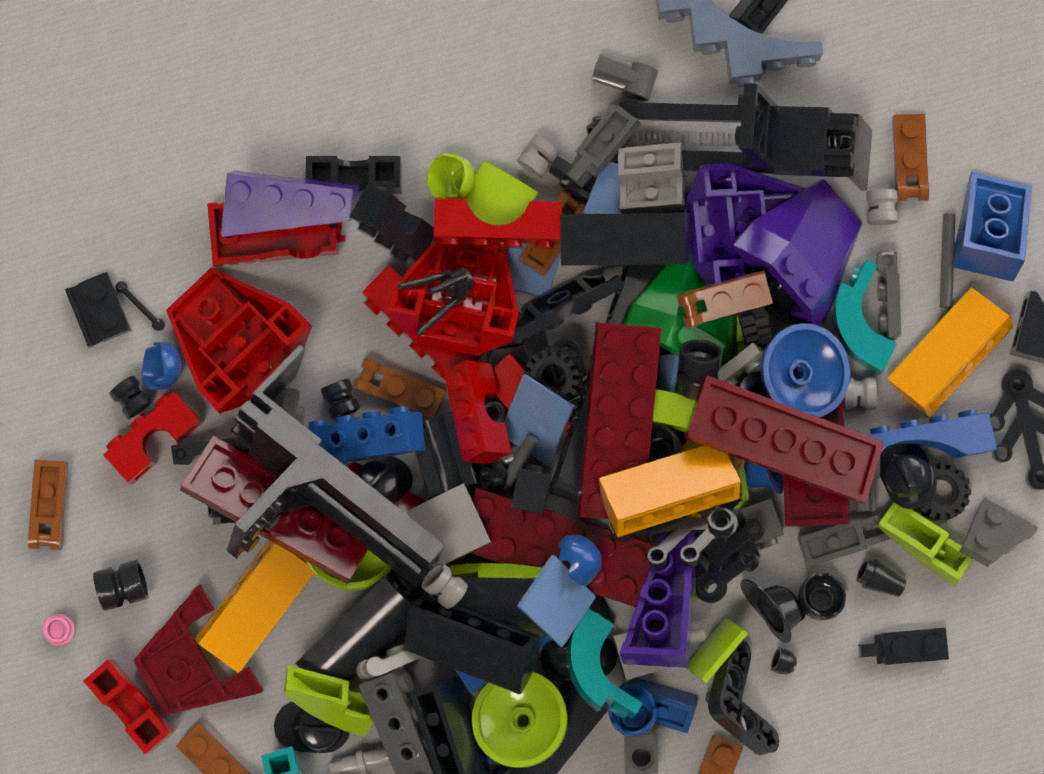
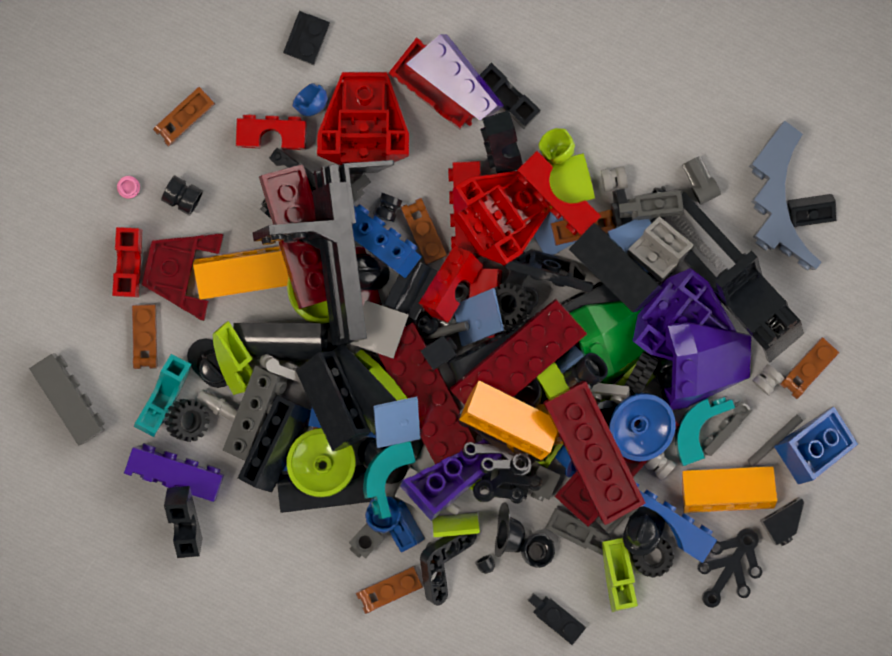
camera: 40 degrees right, 5 degrees up
(130, 397) = (282, 96): black wheel -> none
(157, 324) = (330, 75): black hinge -> none
(444, 585) = (347, 359): light grey wheel -> none
(452, 284) = (503, 205): black plant -> none
(582, 556) = (431, 413): blue hair -> none
(725, 298) = (635, 350): plate -> none
(879, 578) = (577, 570): black cone -> none
(994, 533) = (659, 604): dark grey wing -> none

